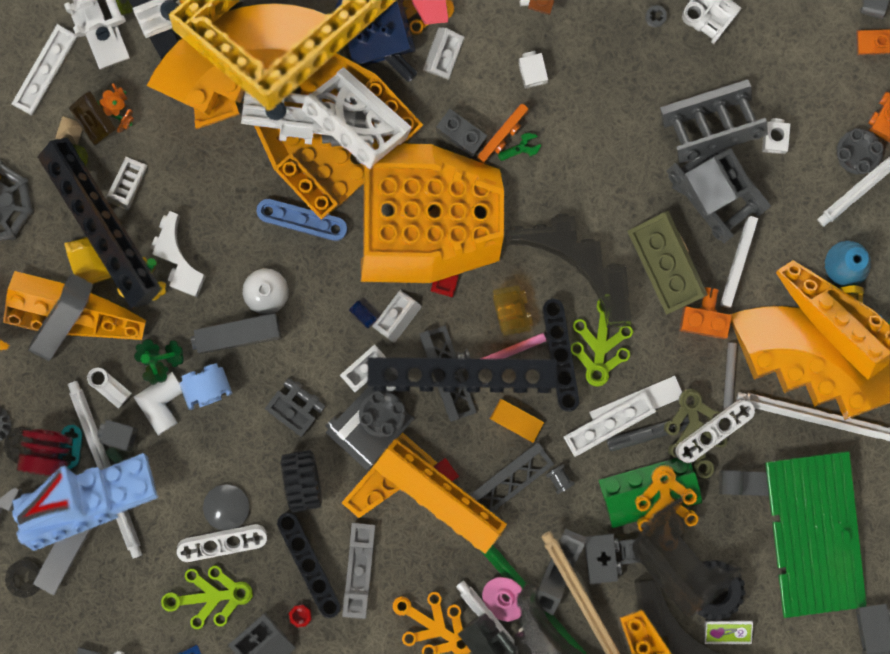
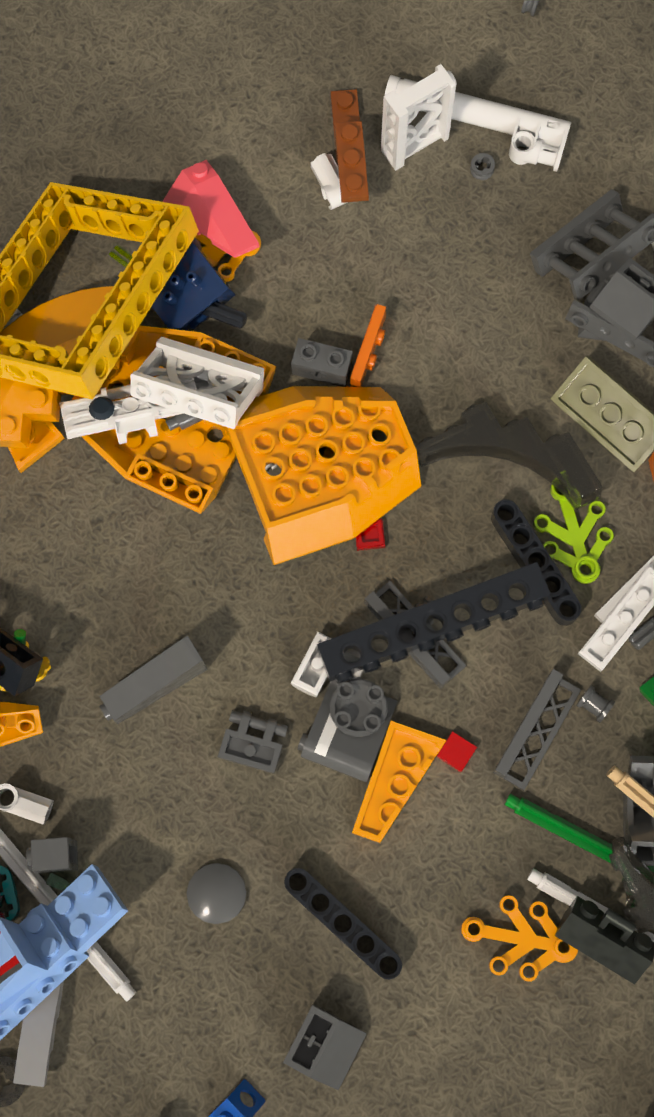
camera: 15 degrees left, 10 degrees down
(148, 354) = (57, 747): dark green plant -> none
(154, 400) = (83, 799): white brick -> none
(166, 247) = (68, 641): white arch -> none
(205, 387) = (137, 756): light blue brick -> none
(211, 596) = (240, 1011): lime plant -> none
(220, 539) = (230, 943): white beam -> none
(265, 291) = (166, 620): white cylinder -> none
(300, 615) = (356, 990): red tile -> none
(301, 220) = (178, 525): medium blue plate -> none
(301, 481) = (295, 823): black tyre -> none
(358, 571) = (405, 907): light grey slope -> none
(362, 316) = (287, 597): clear blue piece -> none
(397, 316) = (330, 592): white slope -> none
(440, 496) = (467, 776): light orange brick -> none
(443, 53) = (267, 288): white slope -> none
(495, 600) = (592, 883): bright pink dish -> none
(511, 311) = (458, 534): clear yellow slope -> none
(516, 420) = (516, 656): light orange slope -> none
(517, 348) = (494, 563): bright pink bar -> none
(520, 148) = (394, 356): green bar -> none
(533, 69) = (373, 268): white brick -> none

